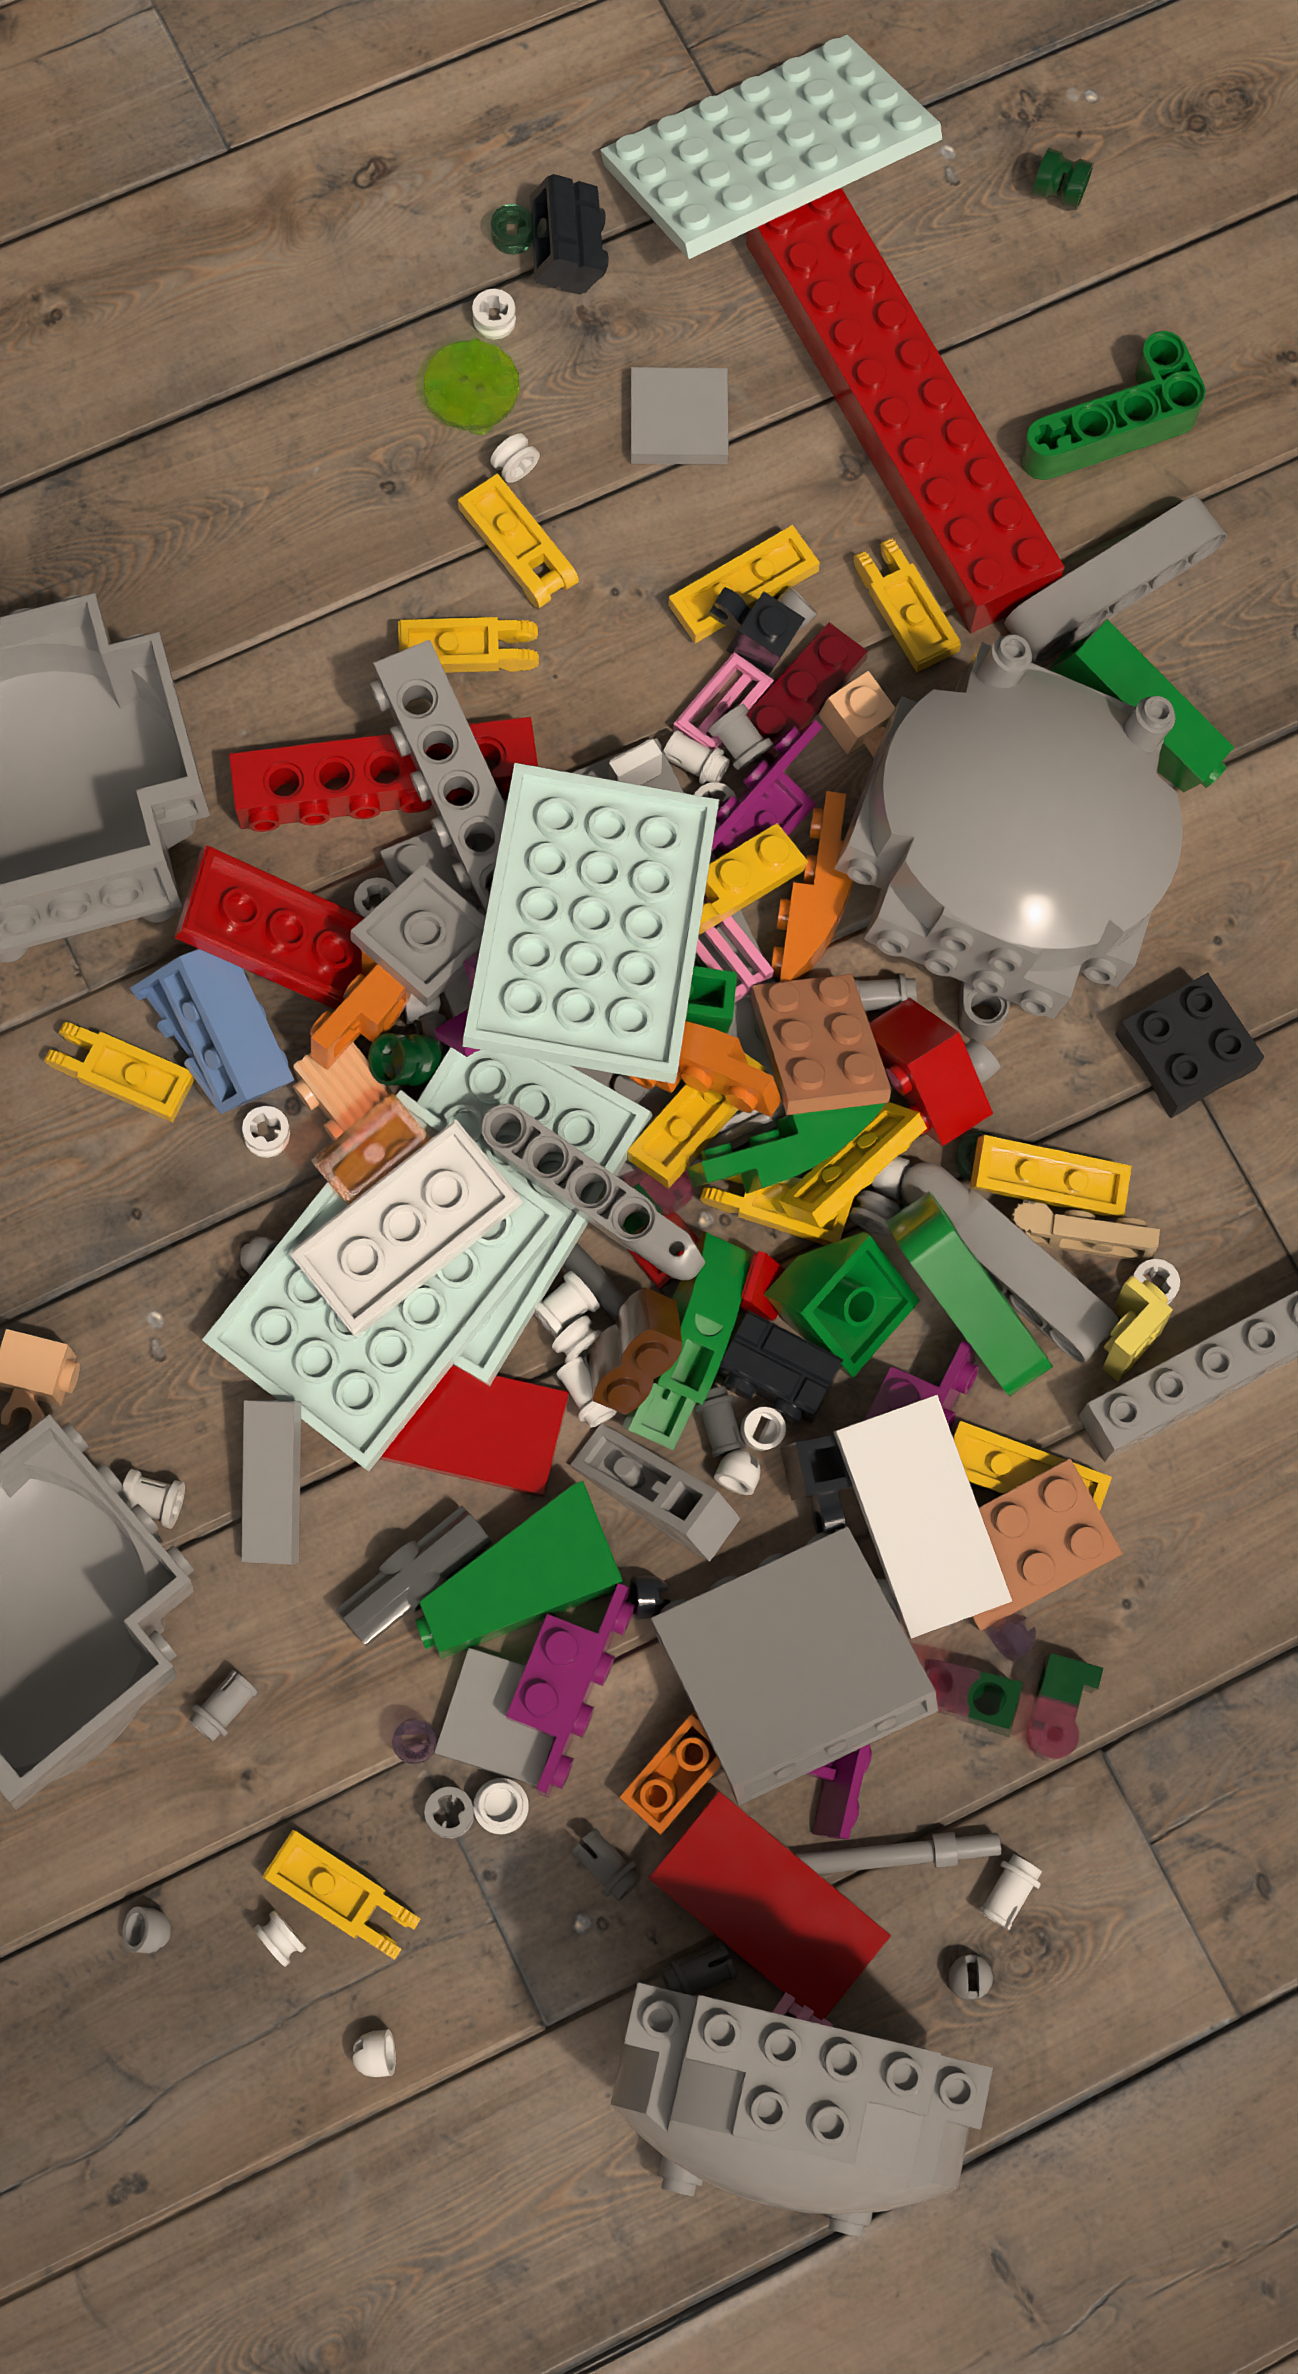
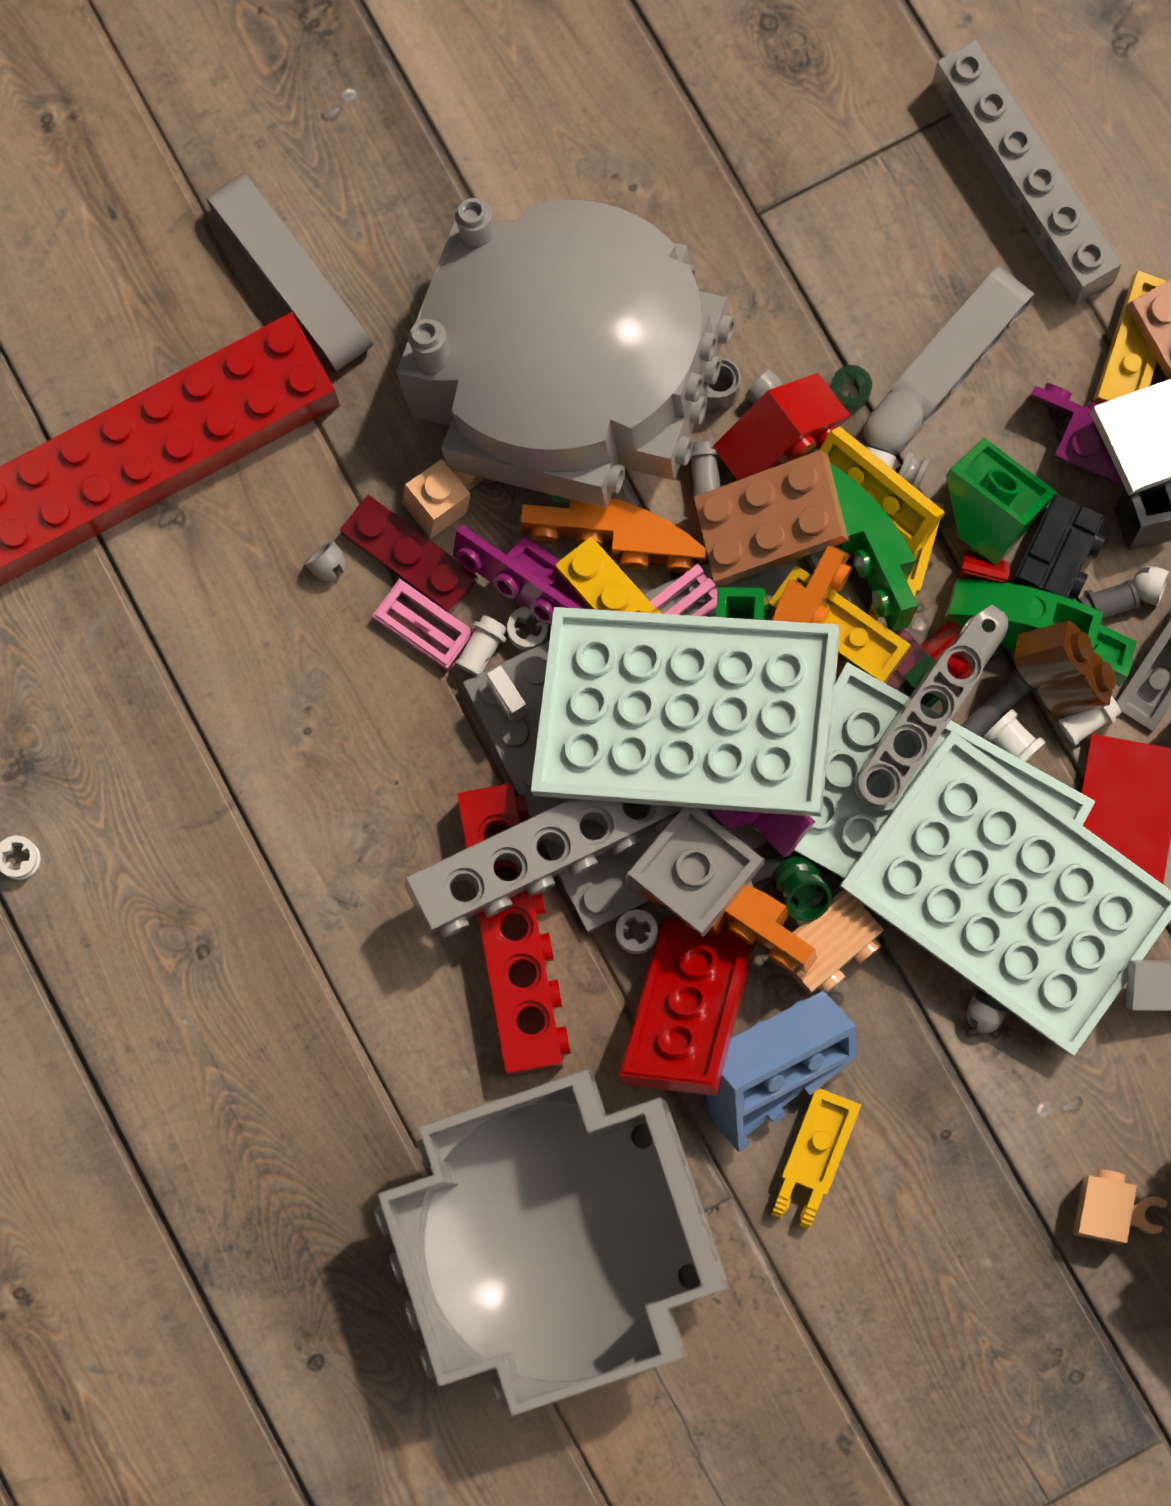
camera: 85 degrees left, 5 degrees up
(259, 1145) = (878, 1022): white bush -> none
(370, 1149) = (897, 909): clear orange slope -> none
(406, 1228) = (971, 871): white tile -> none
(459, 402) = (78, 863): clear neon green plate -> none
(473, 642) = (374, 869): yellow hinge -> none
(515, 458) = (177, 827): white bush -> none
(517, 540) = (263, 821): yellow plate -> none
(576, 1339) = (1046, 725): white bush -> none
(679, 415) = (123, 676): light grey tile -> none
(740, 737) = (466, 602): light grey bush -> none
(761, 632) = (356, 589): black brick -> none
(766, 567) = (303, 608): yellow plate -> none
(772, 1433) = (1115, 559): white hinge -> none
(908, 607) = (321, 458): yellow hinge -> none
(968, 1294) = (987, 390): green beam -> none
(1050, 1176) = (873, 323): yellow plate -> none
(1060, 447) = (125, 276): green beam -> none
(1082, 1233) = (917, 300): tan hinge -> none
(1115, 667) = (405, 263): green slope -> none
(1143, 1319) = (1016, 244): light yellow bracket -> none
(1163, 1268) = (956, 226): white bush -> none
(1189, 1044) = (739, 208): black brick -> none

